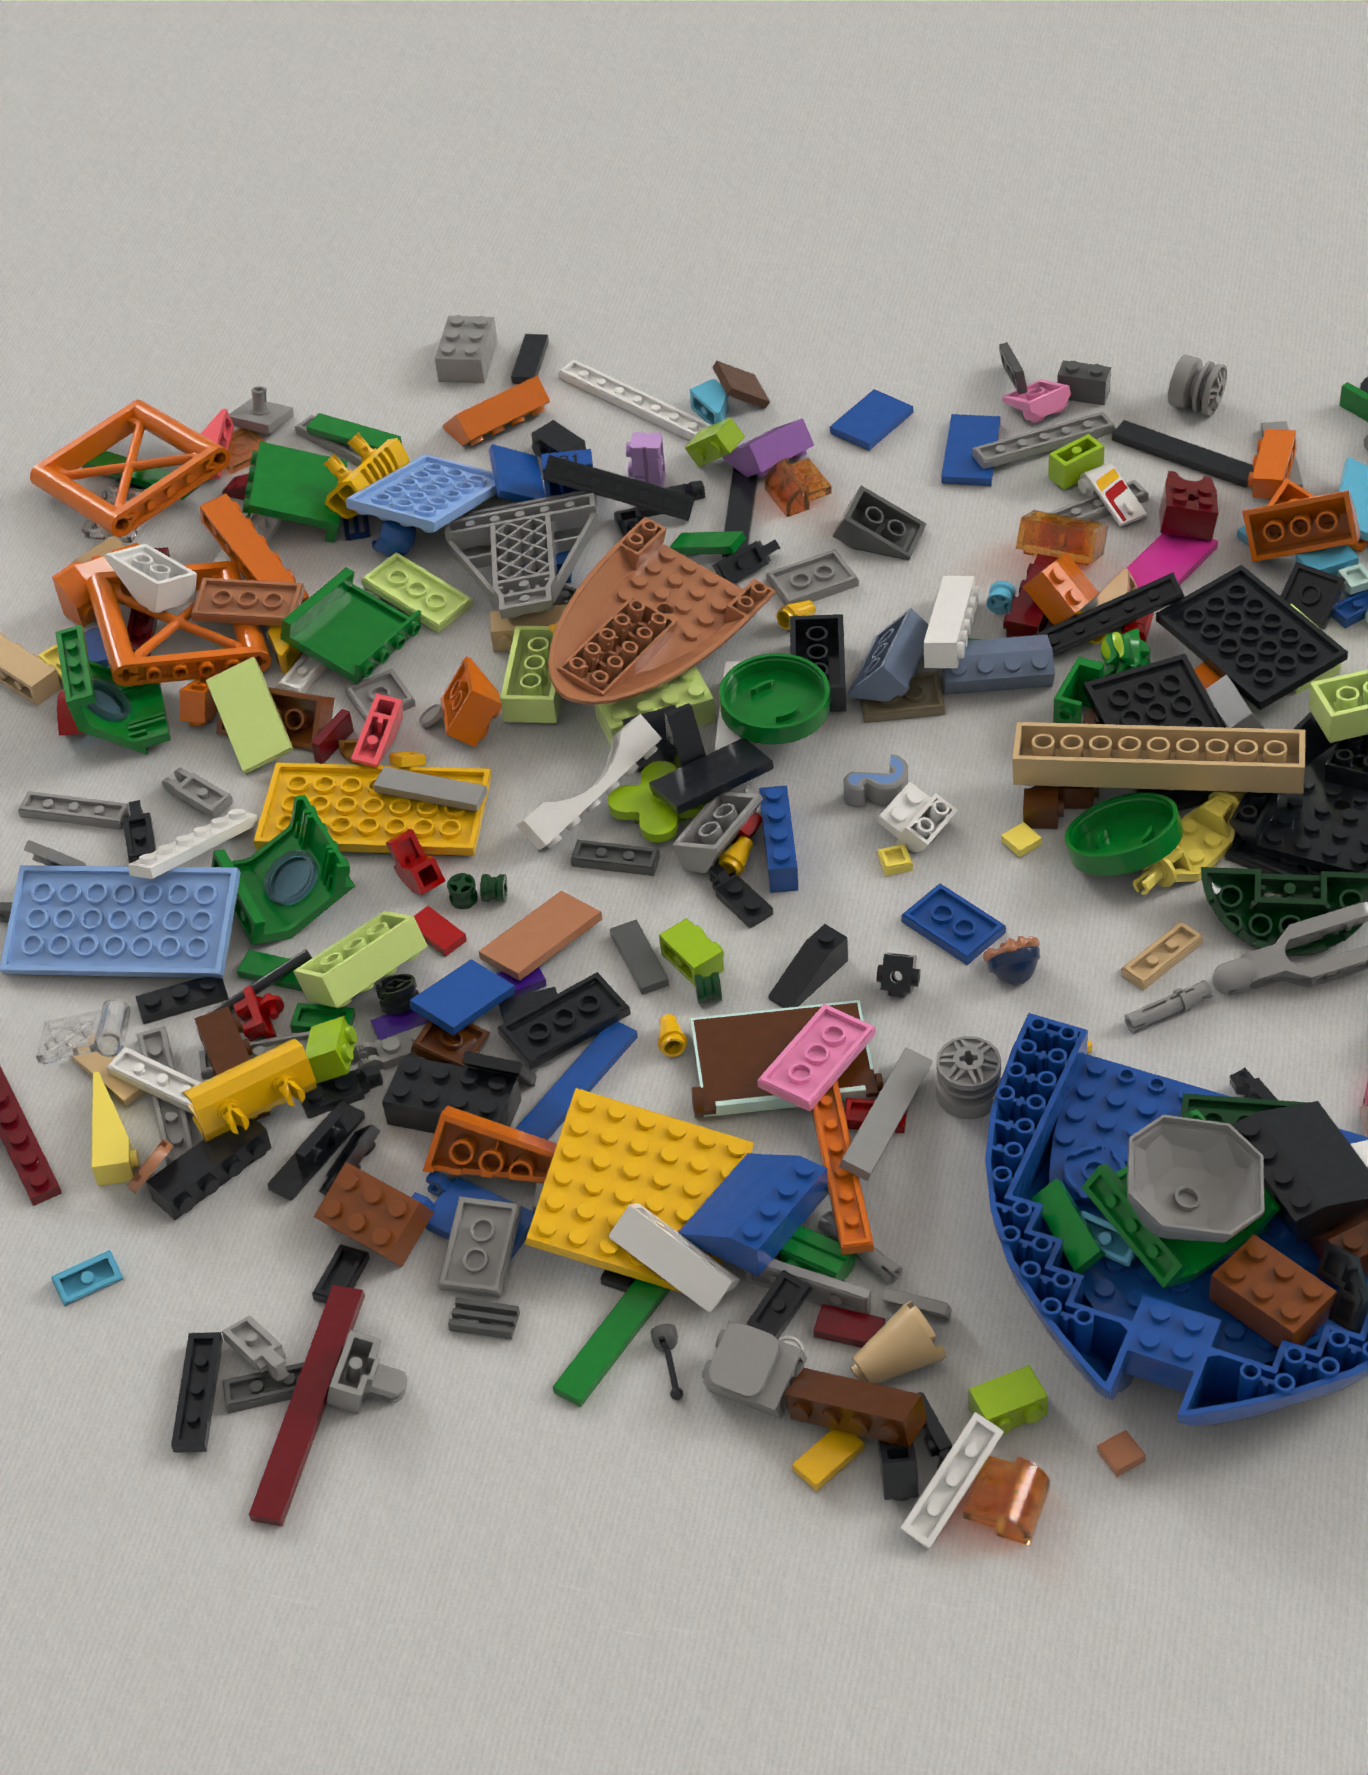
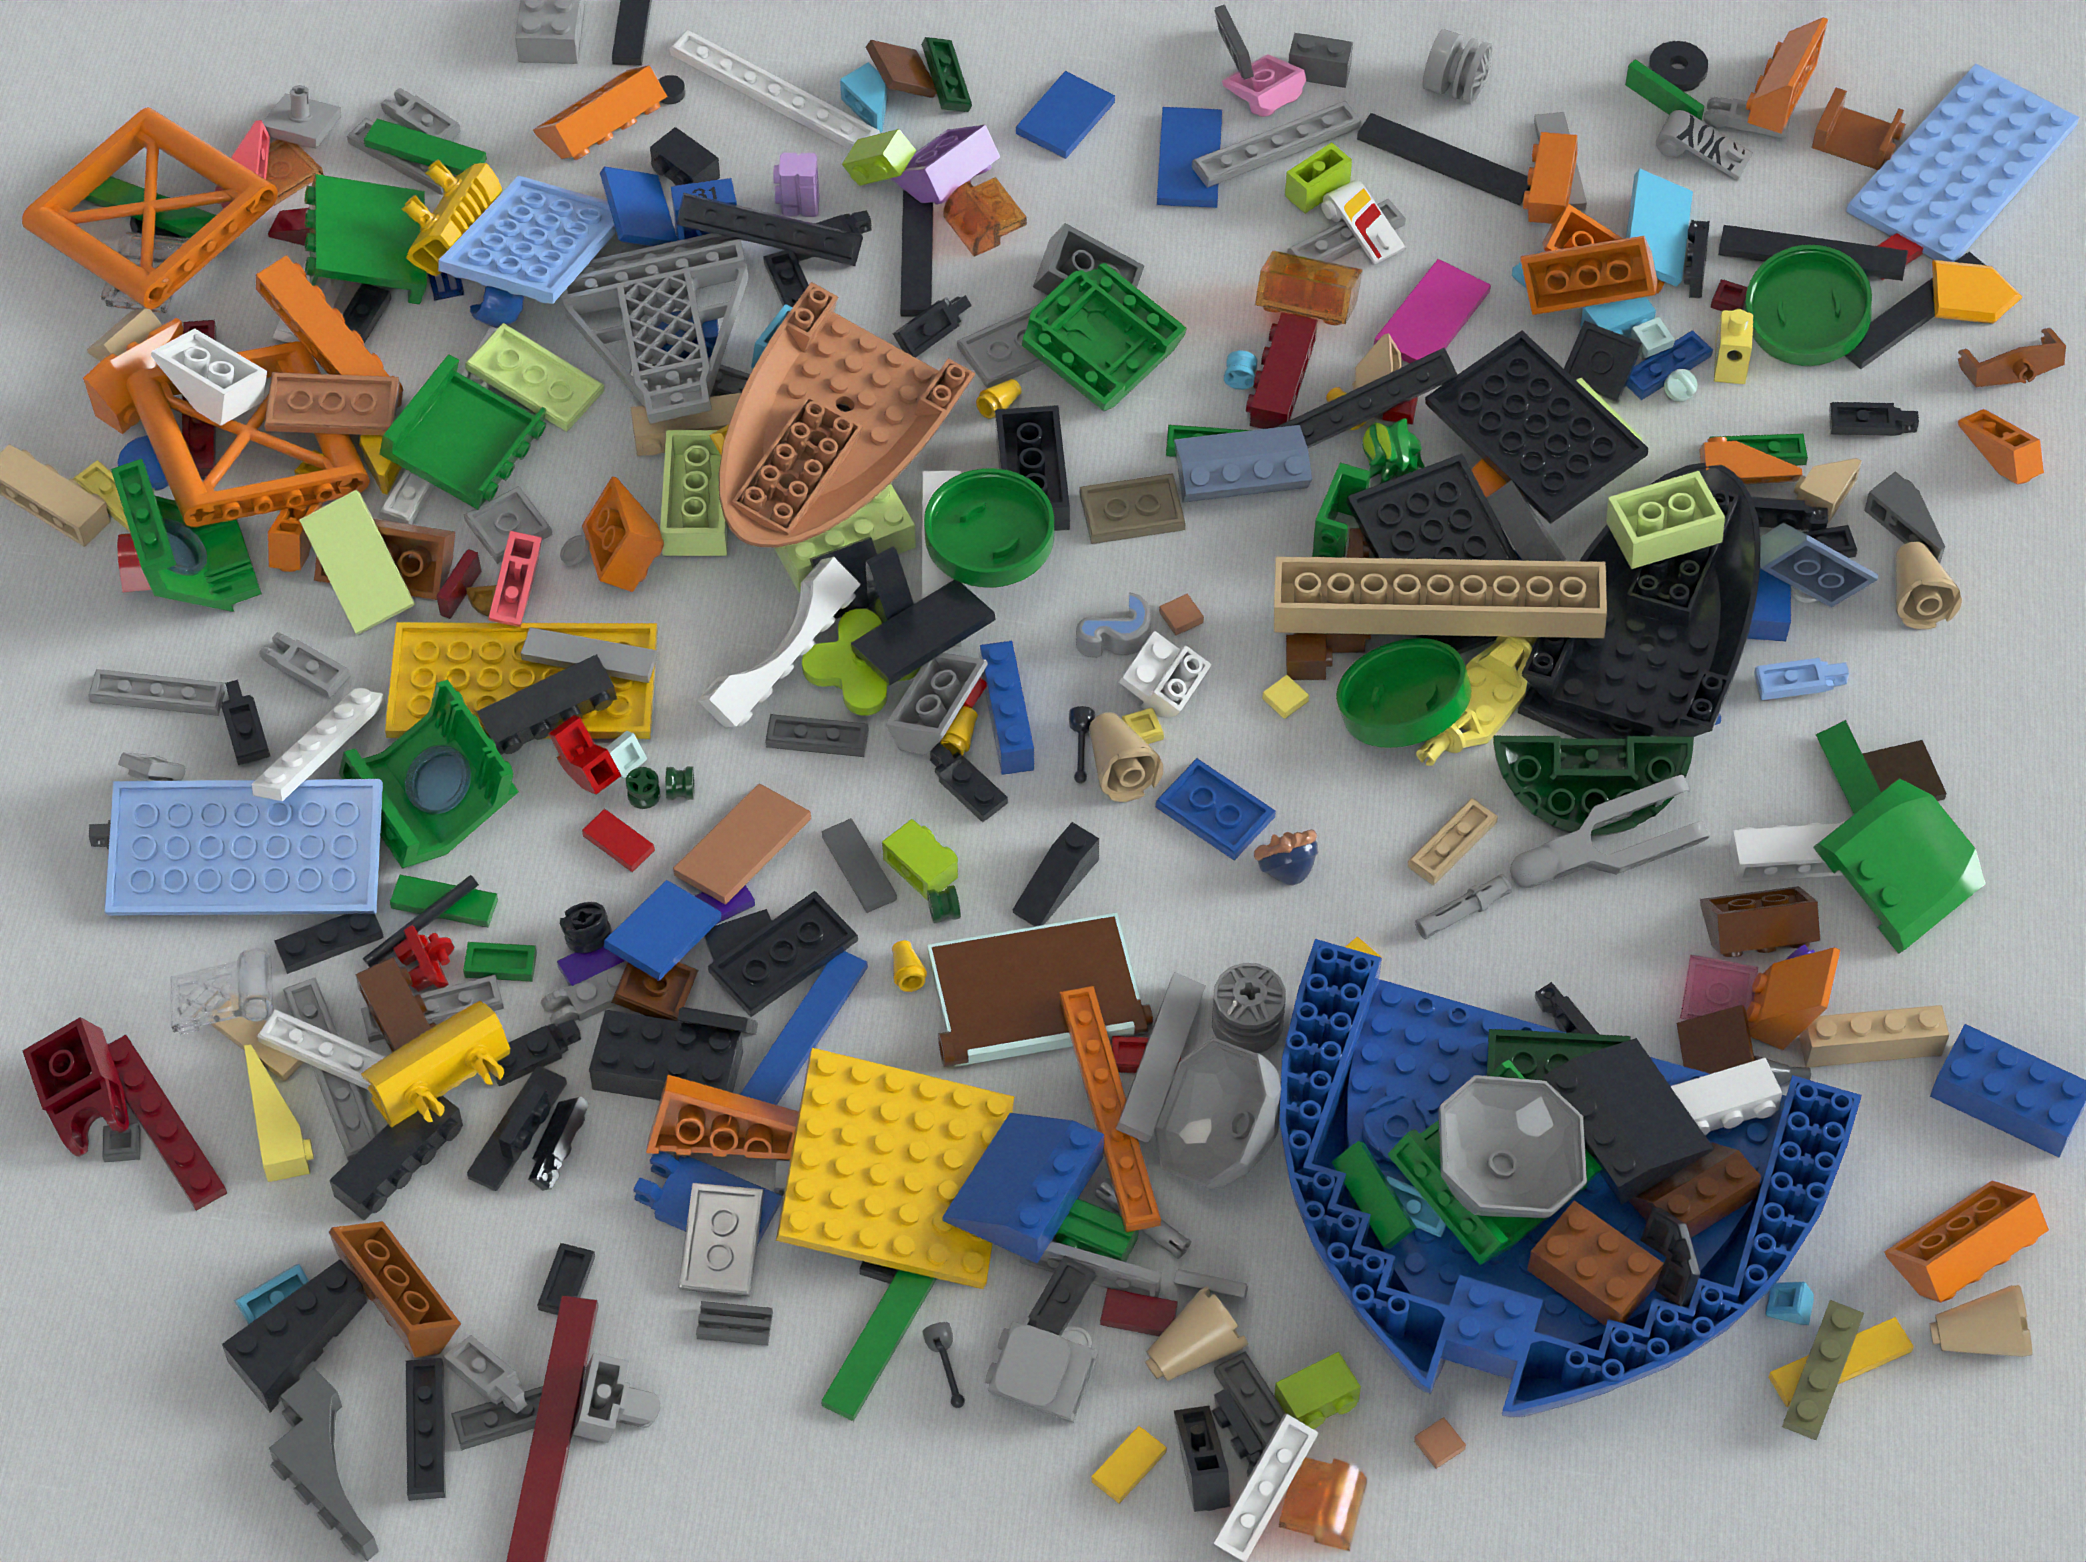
camera: 10 degrees left, 10 degrees up
(92, 1411) = (309, 1459): none -> dark grey arch
(96, 1304) = (294, 1332): none -> black wedge
(149, 1166) = (330, 1161): nougat tile -> none
(188, 1270) = (396, 1286): none -> dark orange slope
(290, 543) = (366, 309): none -> black plate
(331, 1049) = (519, 1002): lime brick -> none
(354, 412) = (420, 115): none -> light grey hinge
(360, 959) = (538, 887): yellowish green brick -> none
(373, 826) = (547, 705): none -> black brick
(373, 1214) = (597, 1208): dark orange brick -> none
(407, 758) = (554, 612): yellow tile -> none
(451, 863) = (626, 753): none -> light aqua tile
(557, 398) = (673, 87): none -> black tile
(673, 1257) = (941, 1245): white panel -> none
(708, 542) = (883, 302): green tile -> none
(777, 391) = (946, 74): none -> dark green tile
(816, 1057) = (1078, 992): bright pink tile -> none
(842, 851) = (1080, 721): none -> black hinge
(856, 1407) = (1156, 1411): reddish brown brick -> none
(875, 881) = (1123, 759): none -> tan cone
(885, 567) = (1101, 334): none -> green wedge
(891, 660) = (1119, 462): sand blue slope -> none
(906, 966) = (1163, 869): black brick -> none
(933, 1157) = (1218, 1114): none -> light grey rock
(936, 775) = (1181, 614): none -> nougat tile
(945, 1400) = (1251, 1396): none -> dark grey tile
(951, 622) = (1187, 413): white brick -> none
(1061, 589) = (1313, 364): orange slope -> none
(1188, 507) = (1455, 241): dark red brick -> none

